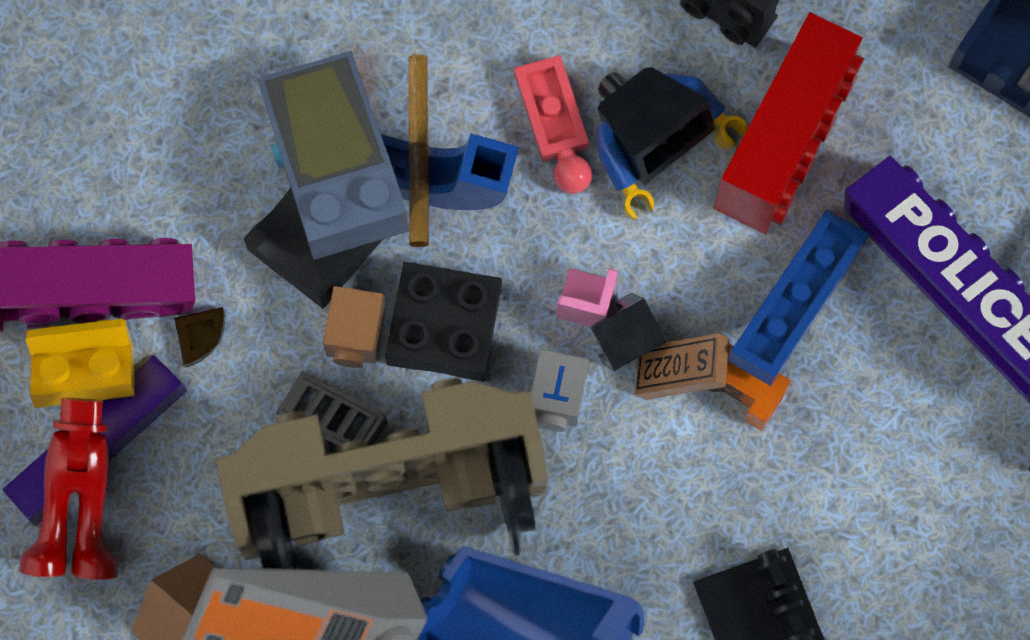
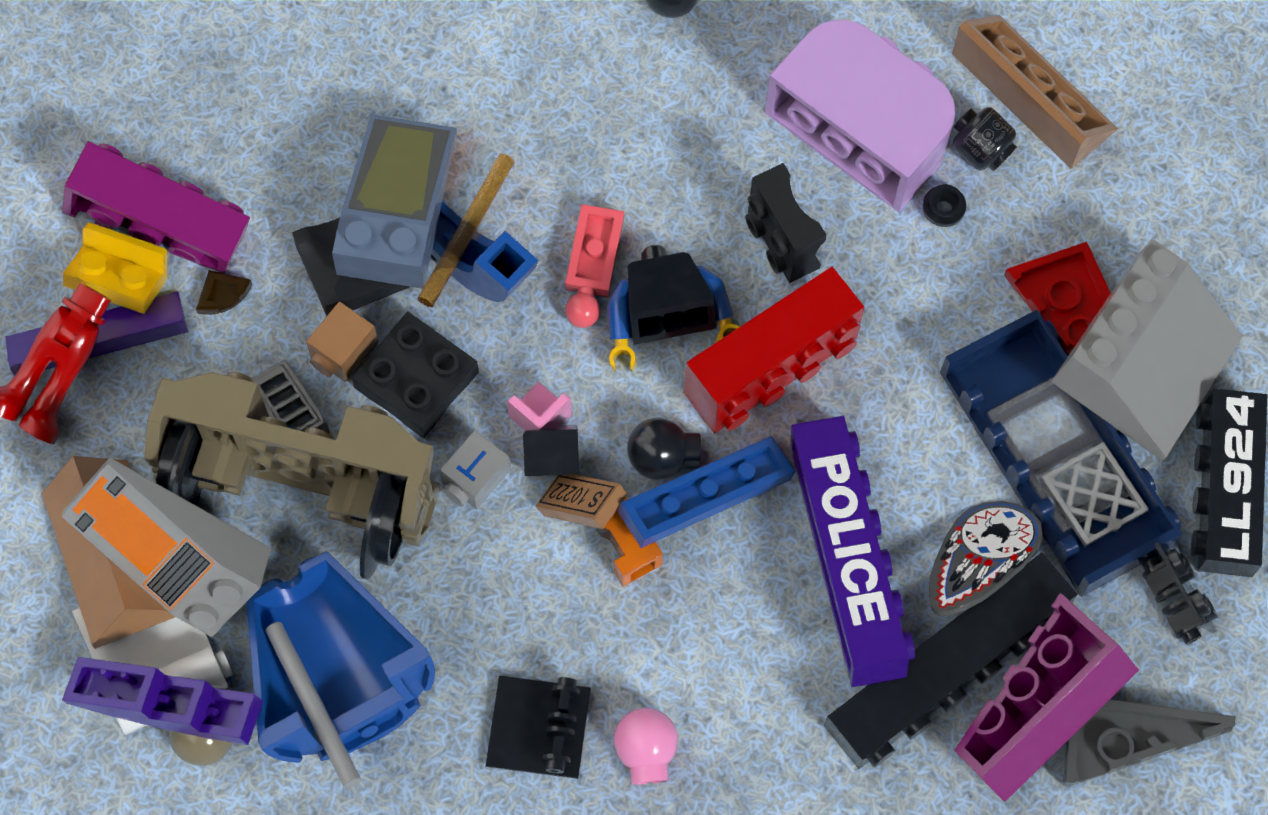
camera: 25 degrees right, 5 degrees down
(729, 275) = (662, 448): none -> black piece
(875, 577) = (646, 744): none -> bright pink piece

